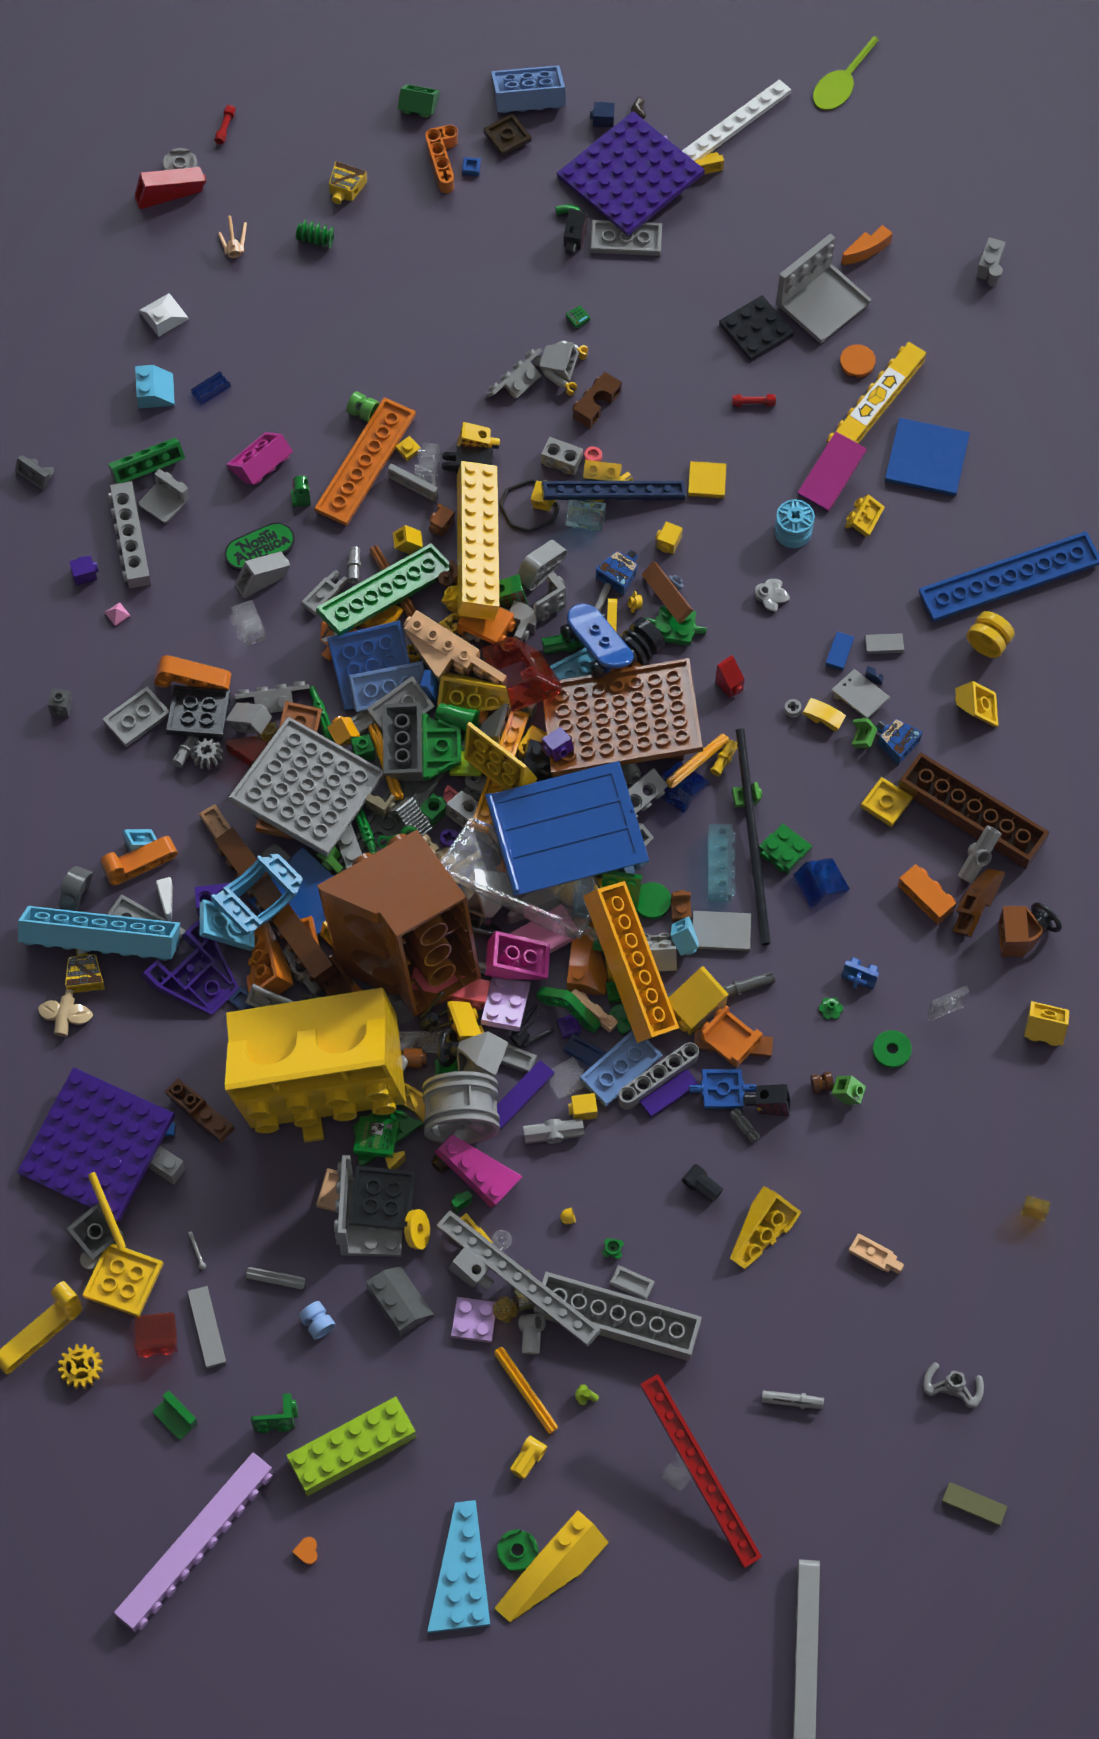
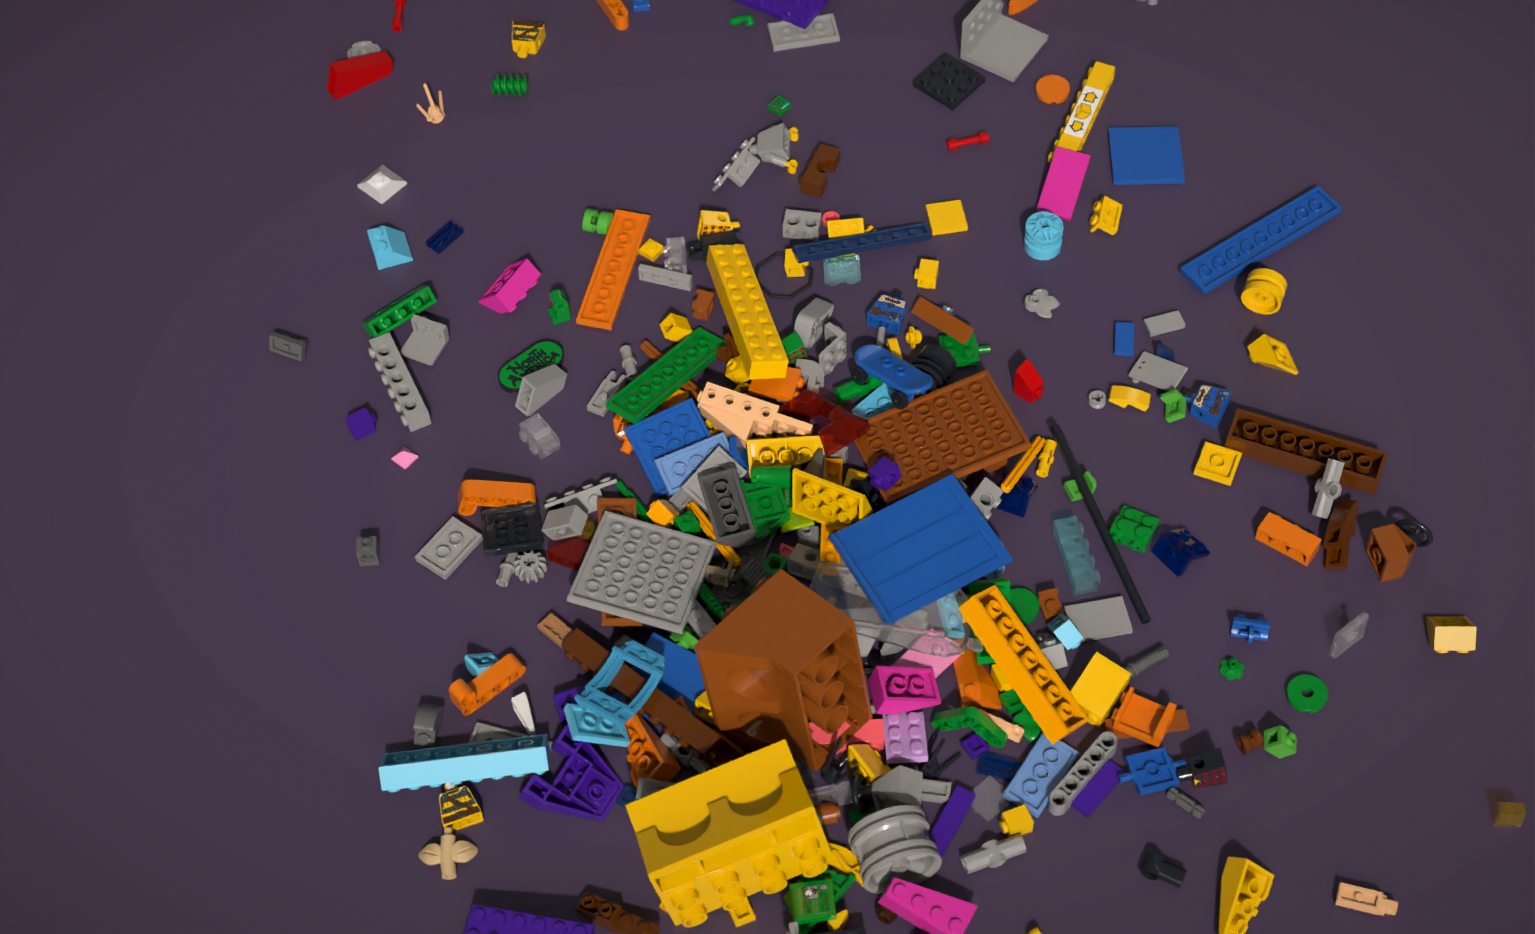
camera: 10 degrees left, 10 degrees down
(575, 231) = (755, 38): black torso -> none

